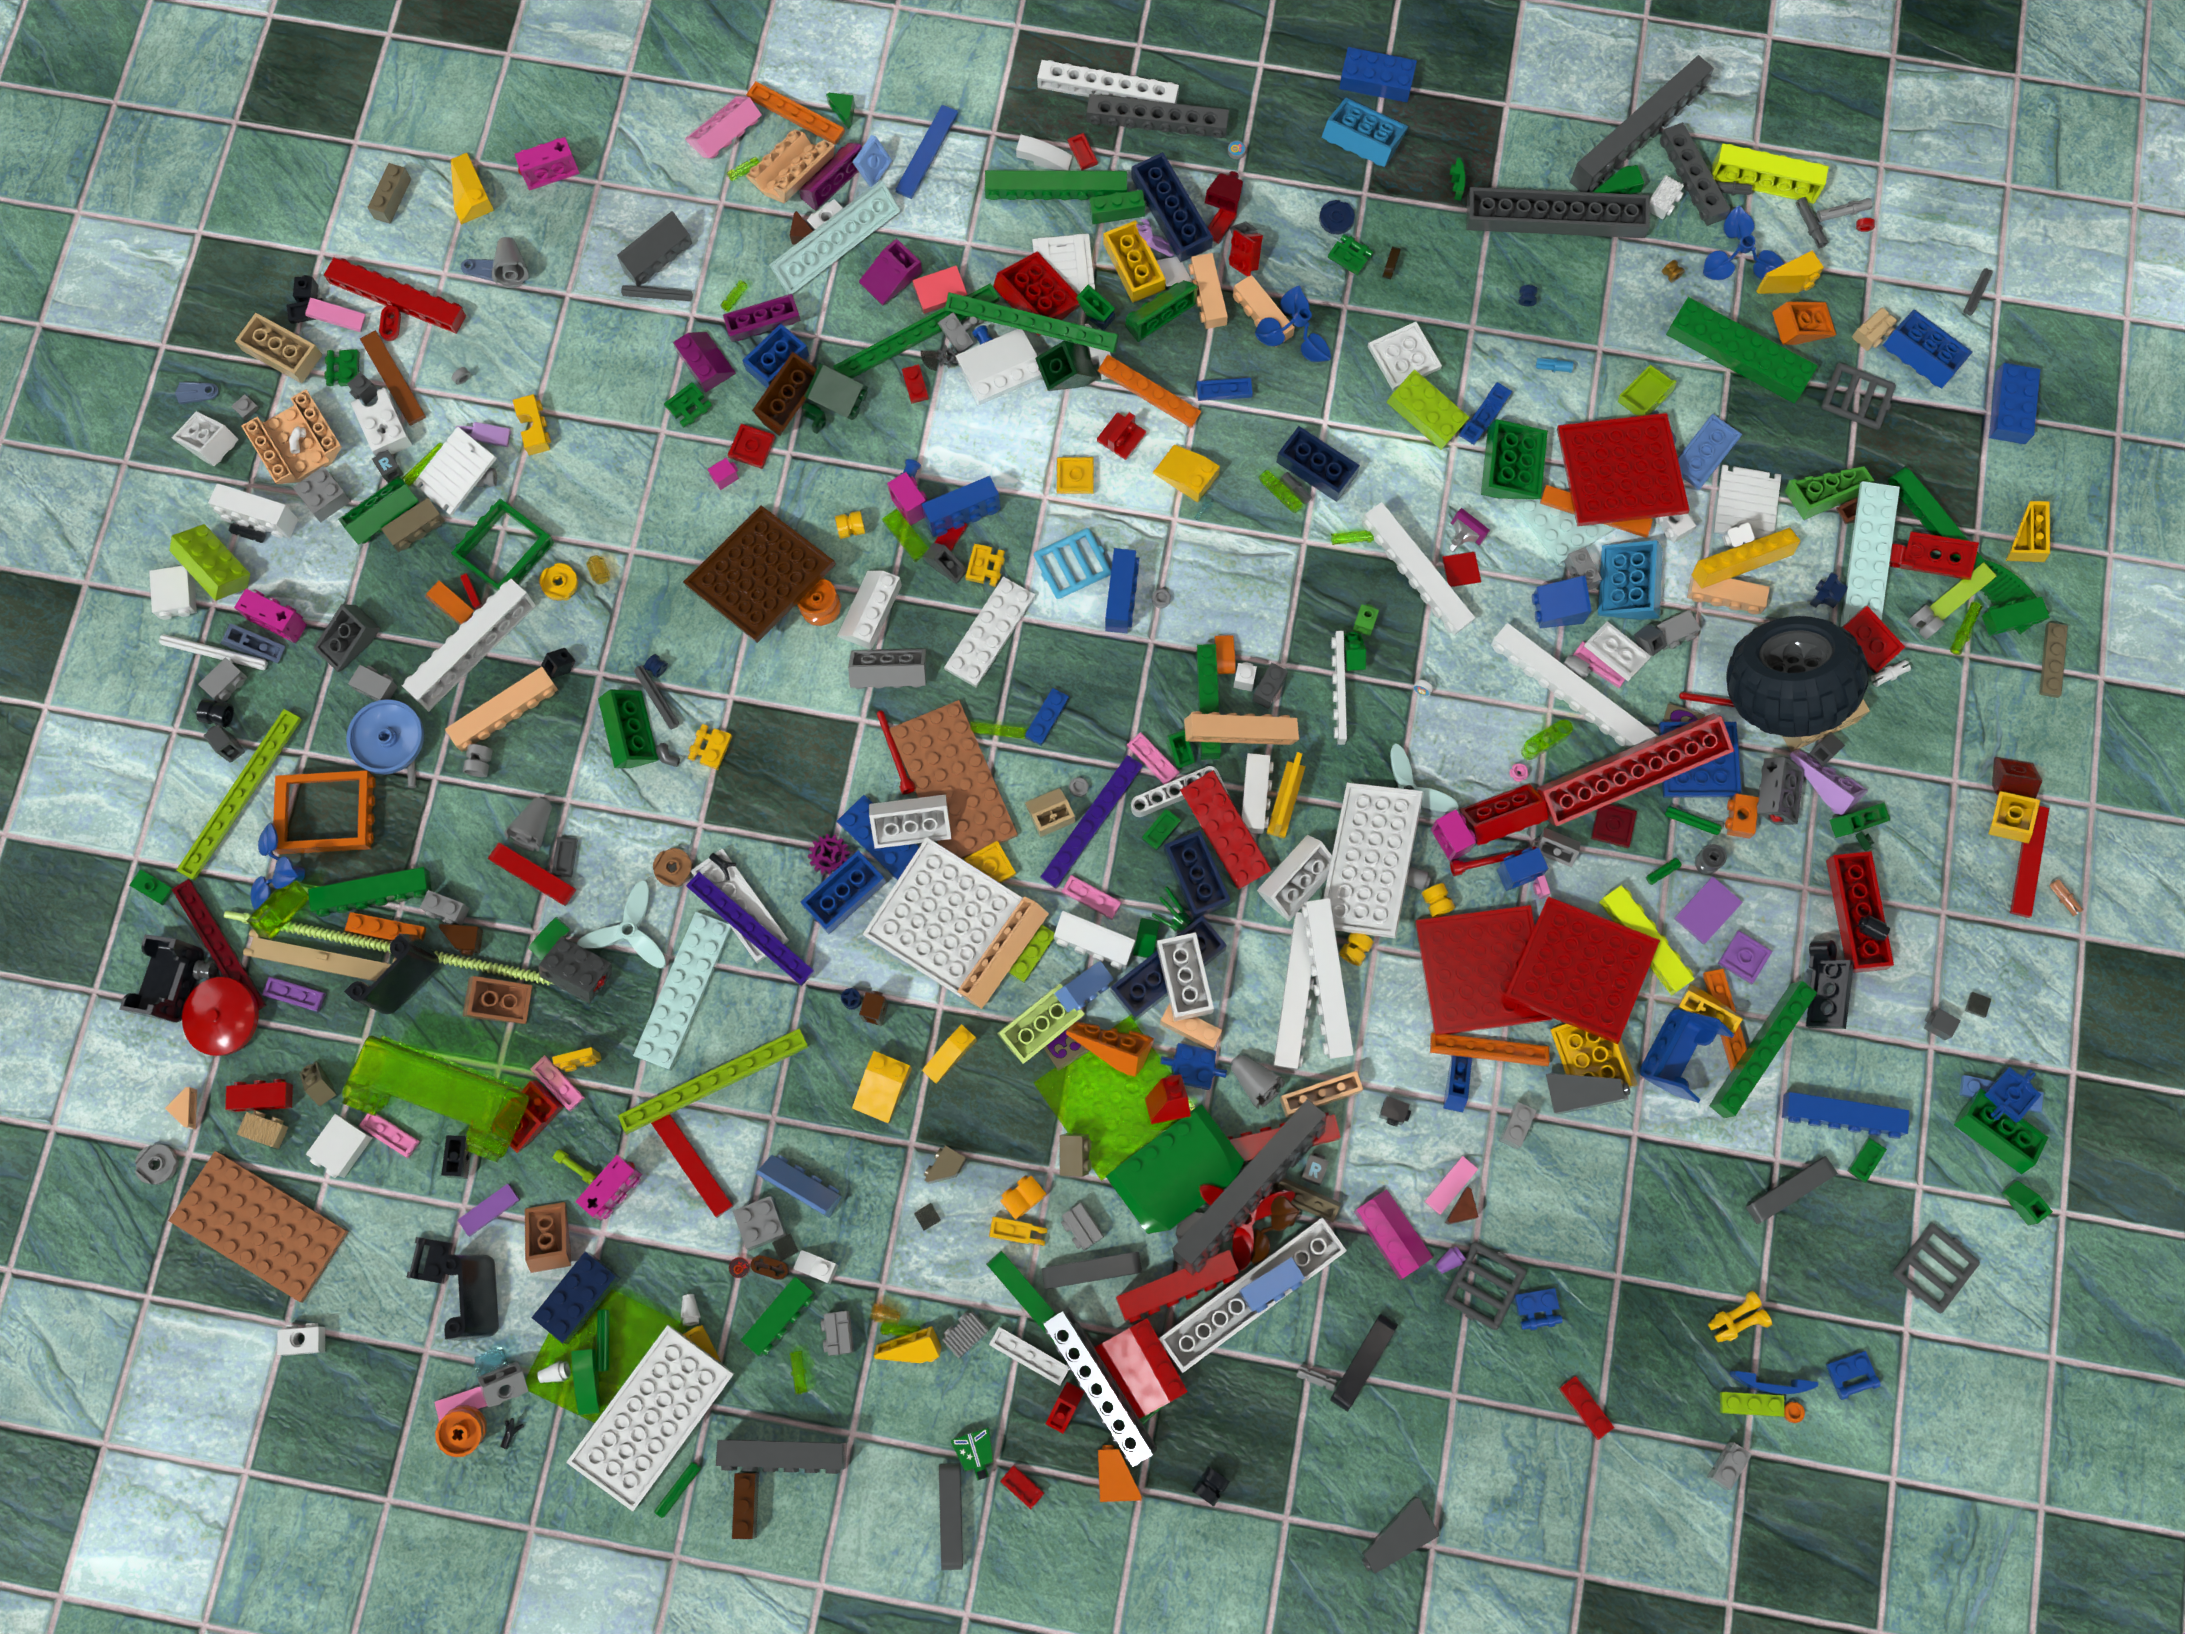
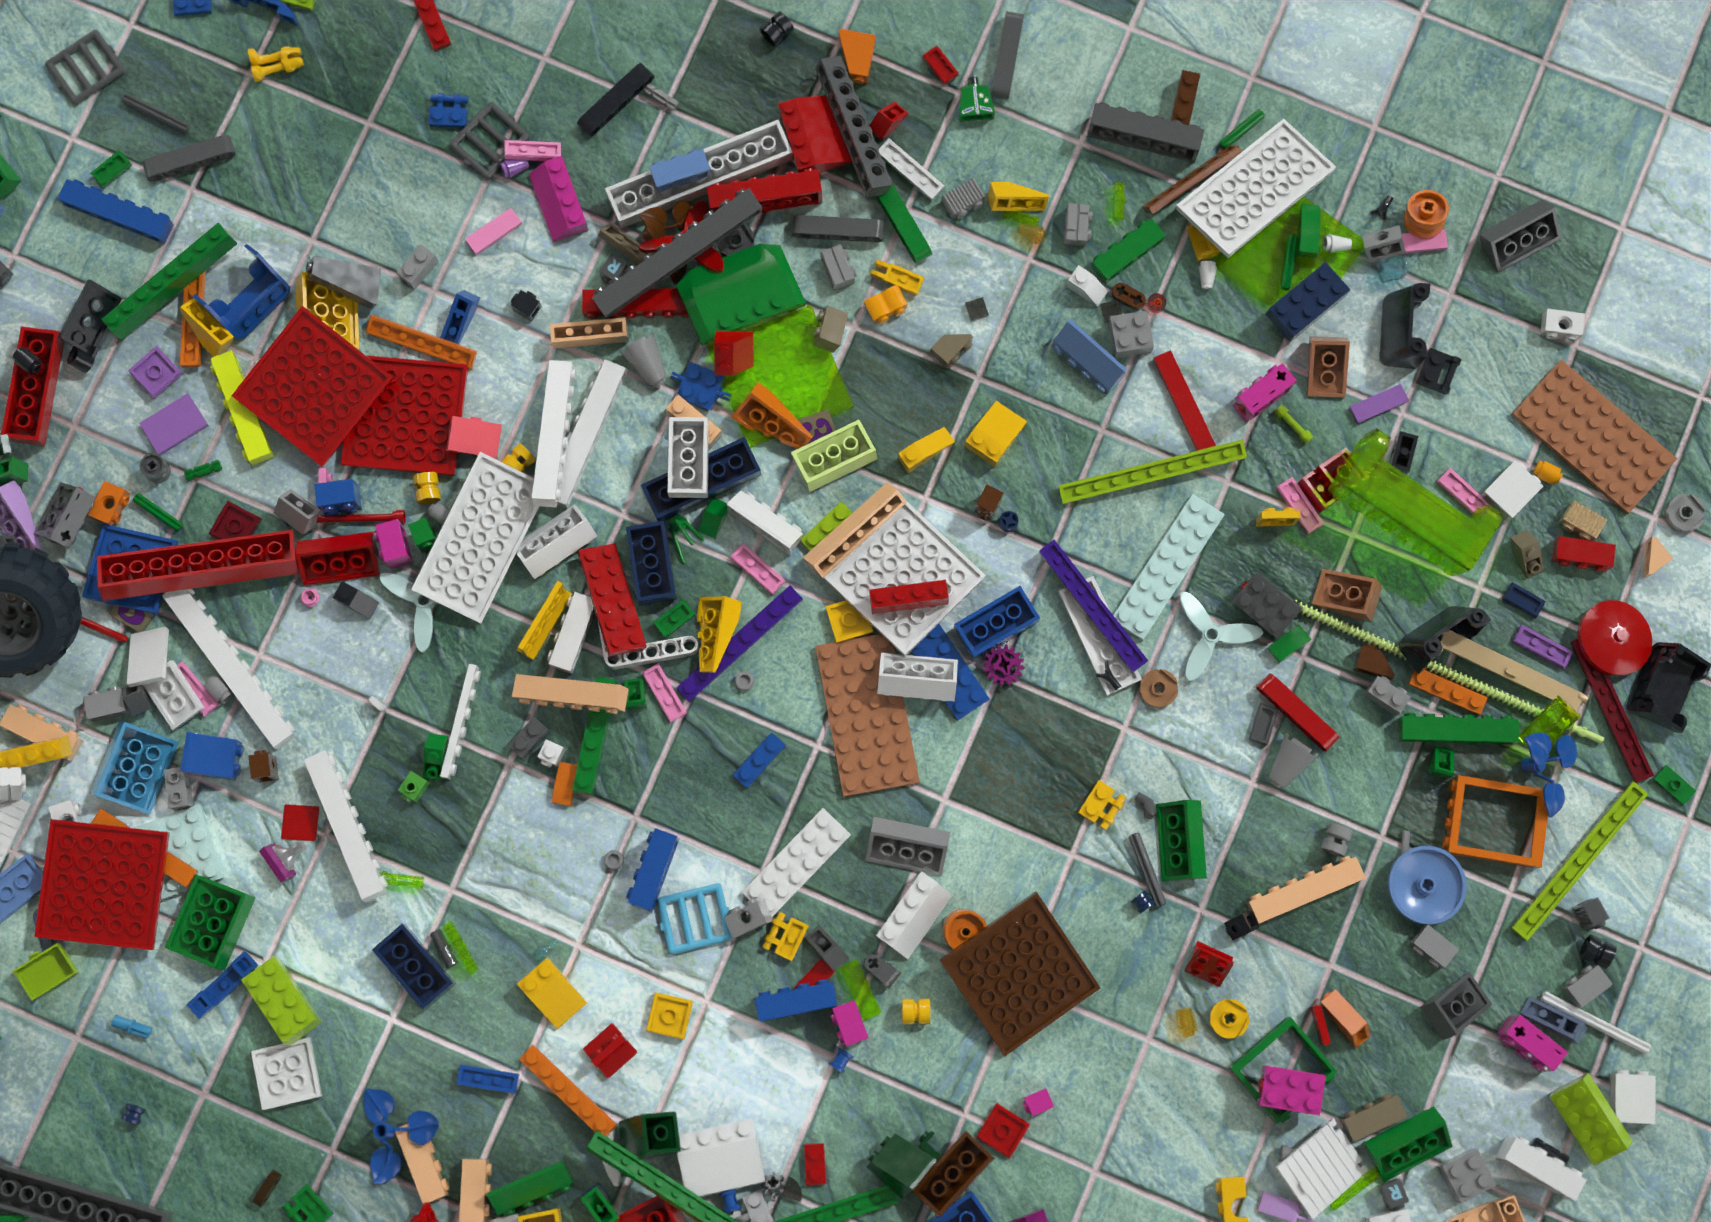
camera: 170 degrees left, 5 degrees up
(205, 970) = (1626, 687): dark grey wheel -> none
(303, 1174) = (1547, 472): none -> light orange brick
(317, 1037) = (1523, 600): none -> dark blue tile
(355, 1434) = (1520, 235): none -> dark grey slope
(382, 855) = (1442, 763): none -> green slope
(469, 645) = (1331, 962): white brick -> none
(490, 523) = (1291, 1090): none -> dark pink piece
(583, 625) = (1209, 964): none -> red bracket
(684, 400) = (1065, 1199): green plate -> none
(722, 1415) = (1191, 179): none -> dark orange tile
(887, 553) = (884, 972): none -> dark grey piece
(906, 785) = (914, 720): red piece -> none
(933, 891) = (908, 596): none -> red brick
(998, 730) = (811, 757): clear neon green axle -> none
(1022, 569) = (758, 914): none -> light grey brick
(1050, 812) = (778, 659): tan slope -> none
(1084, 987) = (785, 476): medium blue brick -> none
(1116, 830) = (717, 622): none -> yellow wedge
(1407, 960) = (473, 436): none -> coral container
(1426, 849) = (422, 534): none -> green brick
(1435, 1281) = (531, 150): none -> bright pink tile
(1464, 1209) = (489, 206): copper slope -> none
(1474, 778) = (355, 600): none -> black slope
(1510, 603) = (263, 766): none -> reddish brown brick
(1552, 733) = (263, 622): clear neon green beam -> none
(1653, 678) = (147, 657): none -> white tile
(1843, 1233) = (155, 113): none -> dark grey axle

